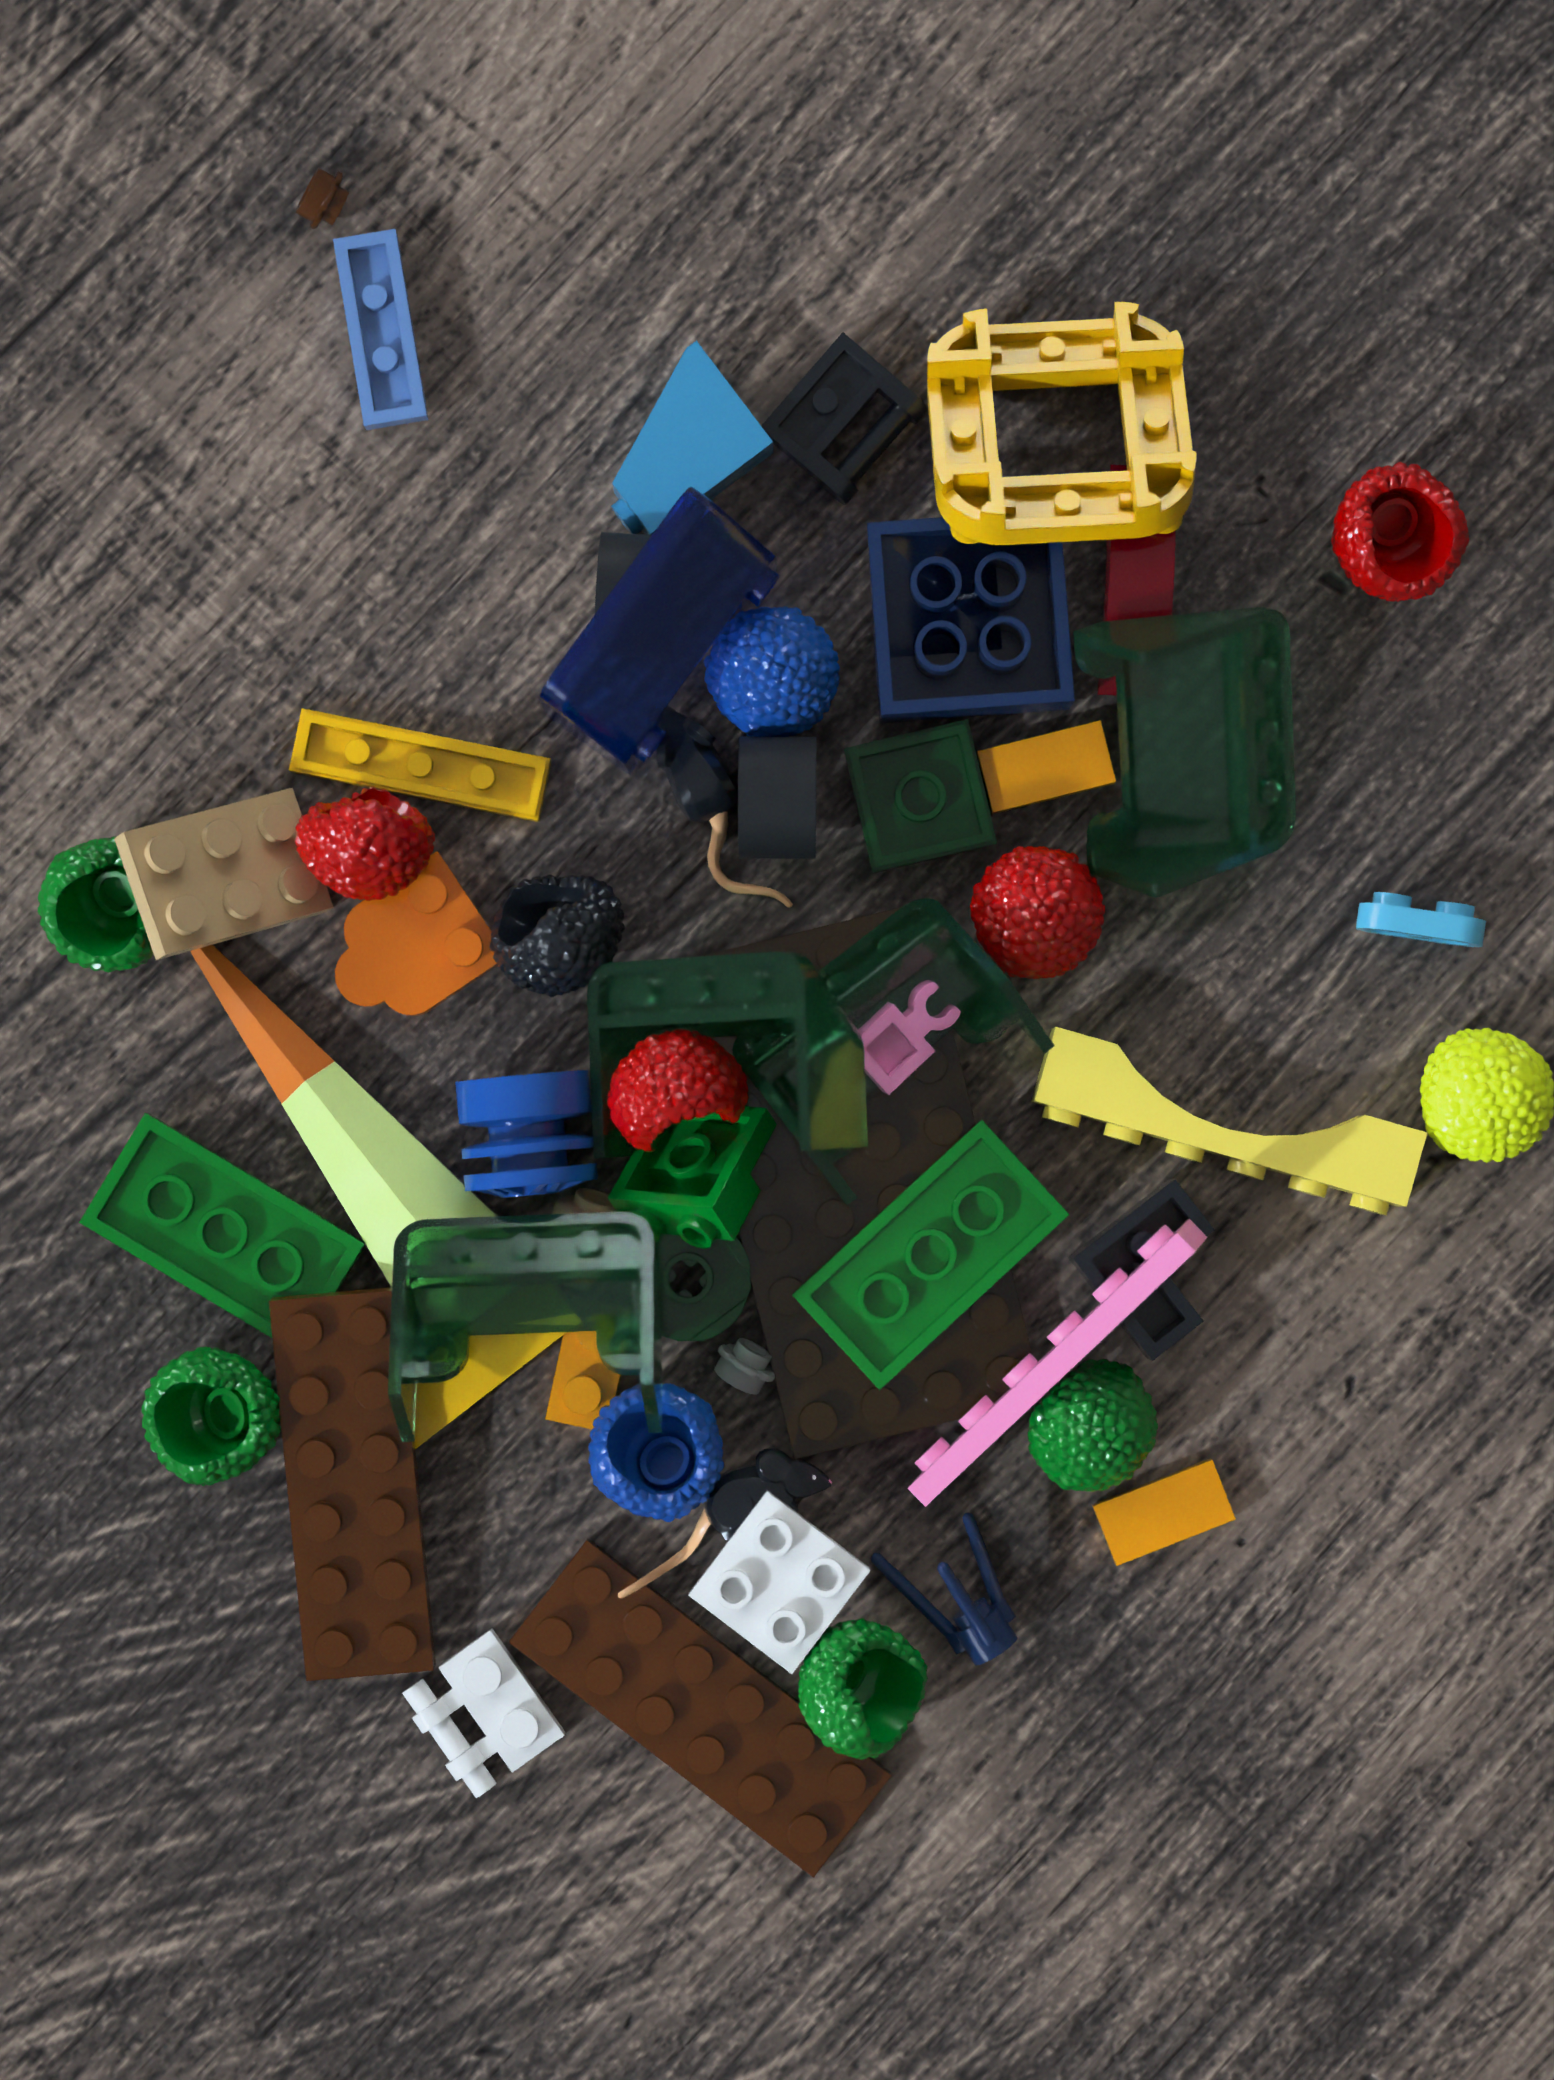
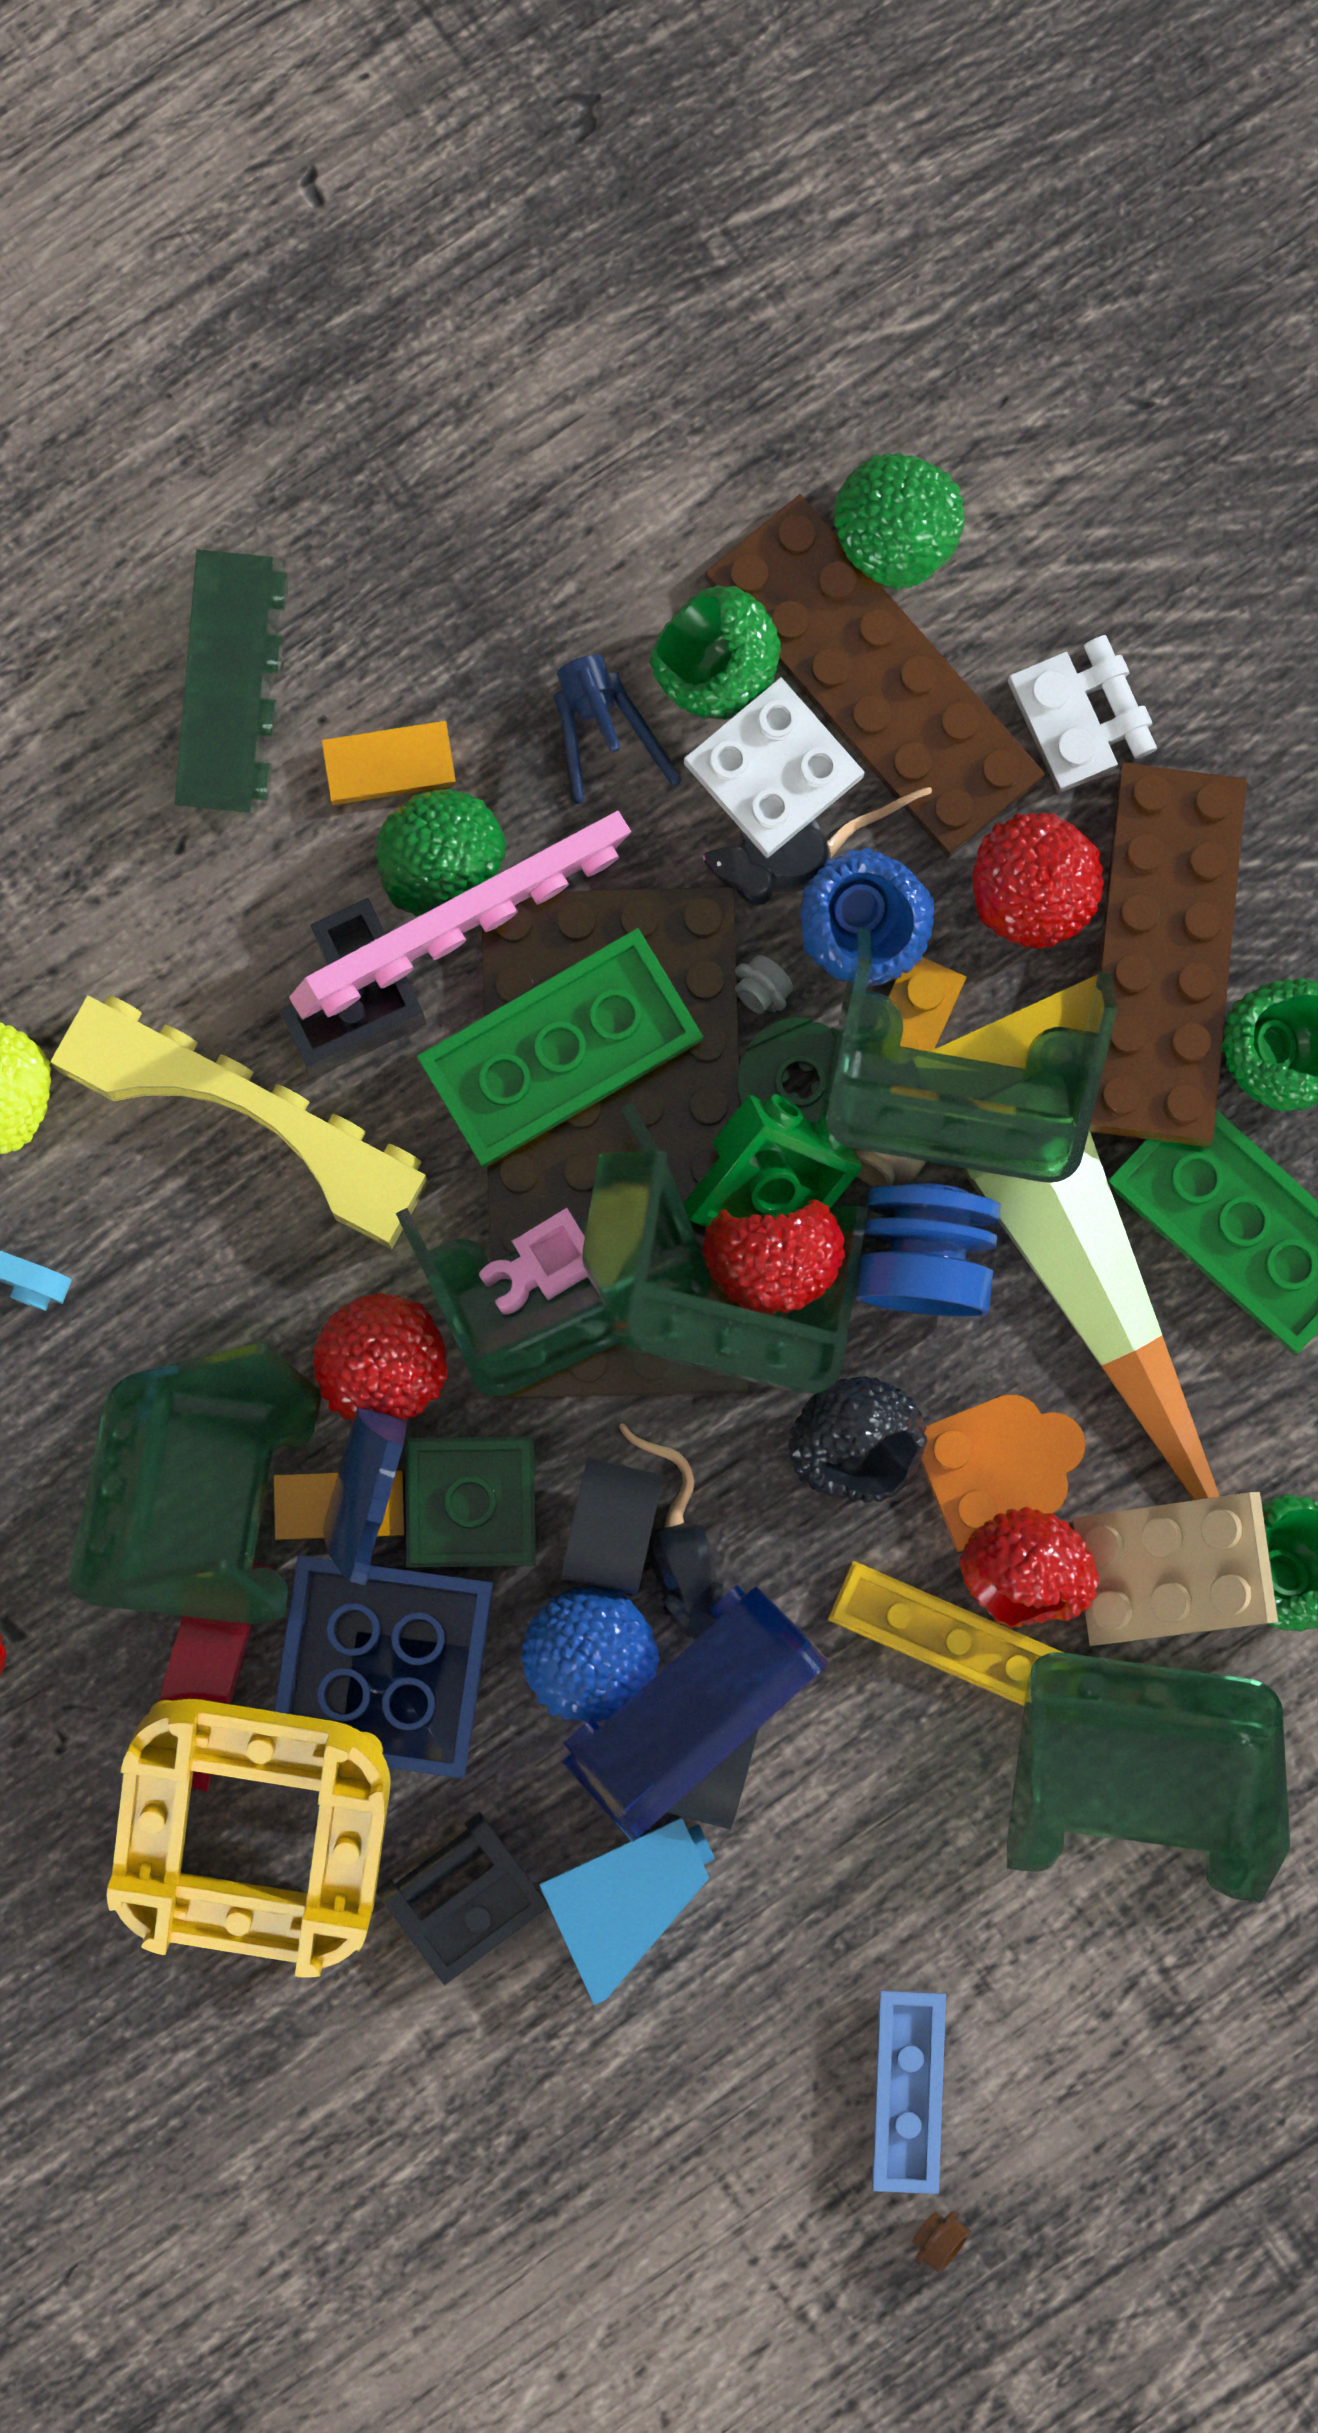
camera: 175 degrees left, 5 degrees down
(209, 688) = (1154, 1763): none -> clear green windscreen
(494, 1528) = (1036, 880): none -> red hair
(708, 1870) = (899, 519): none -> green hair
(1025, 774) = (362, 1491): none -> dark blue slope
(1341, 1557) = (230, 681): none -> clear green wedge

